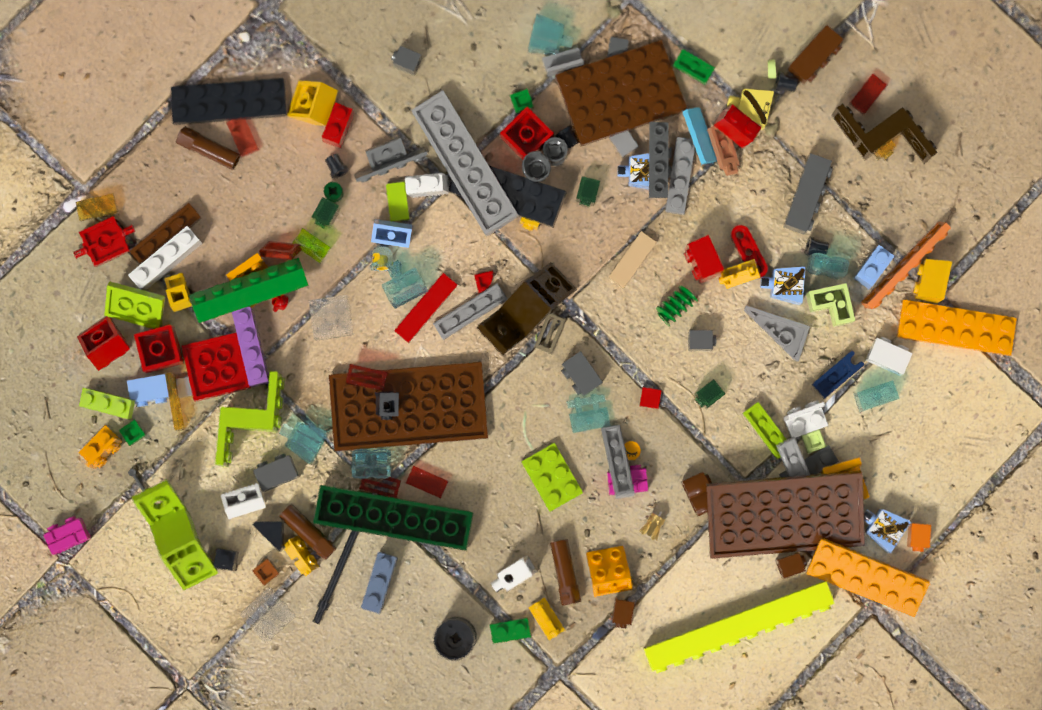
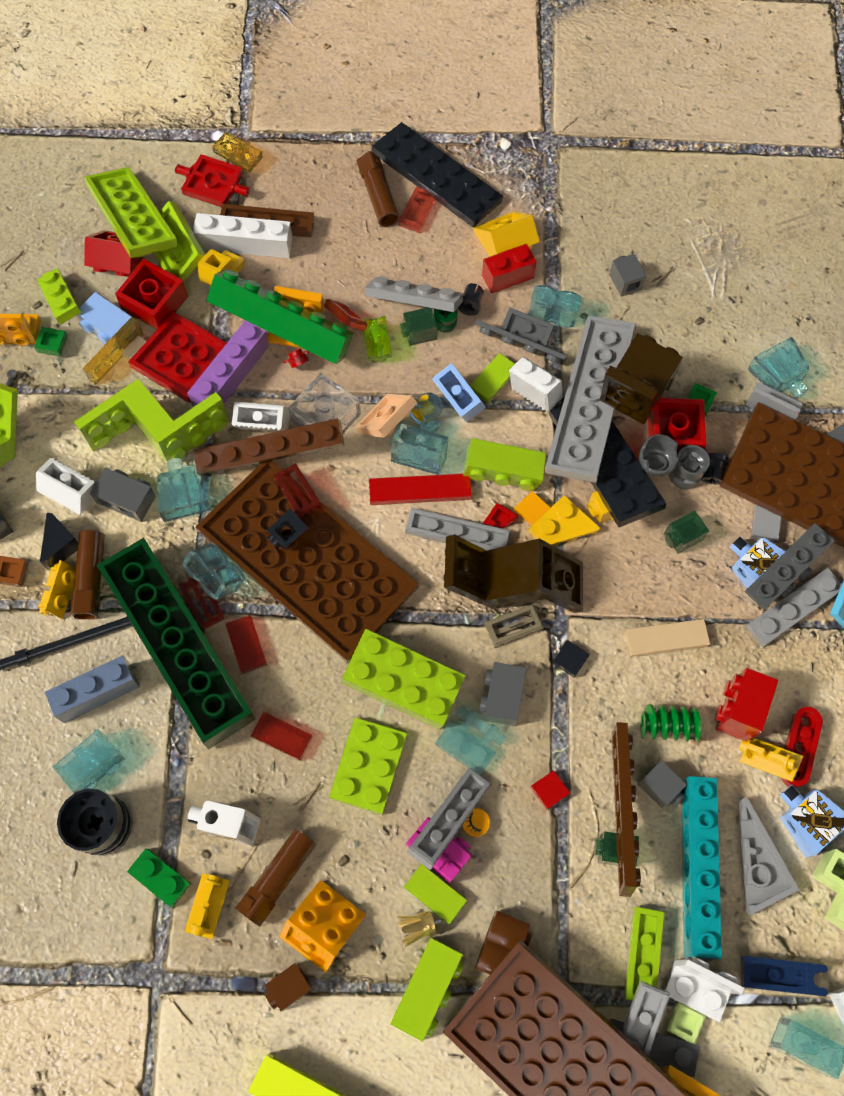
camera: 45 degrees right, 15 degrees down
(89, 313) = (130, 212): none -> lime plate
(301, 357) = (260, 417): none -> white brick
(303, 198) = (414, 294): none -> light grey plate
(326, 370) = (269, 447): none -> reddish brown plate
(366, 287) = (386, 415): none -> light nougat plate
(383, 126) = (555, 306): none -> clear light blue brick
(418, 617) = (89, 762): none -> clear light blue brick
(458, 250) = (504, 464): none -> lime brick
(485, 132) = (640, 378): none -> dark brown bracket
(495, 258) = (531, 508): none -> light orange tile
(495, 507) = (281, 736): none -> clear red tile
(519, 251) = (563, 524): none -> yellow wing
(526, 419) = (403, 679): none -> lime brick
(595, 320) = (571, 658): none -> black tile
(645, 503) = (435, 894): none -> lime tile
(686, 548) = (428, 990): none -> lime brick
(699, 377) = (626, 820): none -> reddish brown plate
(755, 362) = (701, 869): none -> teal brick

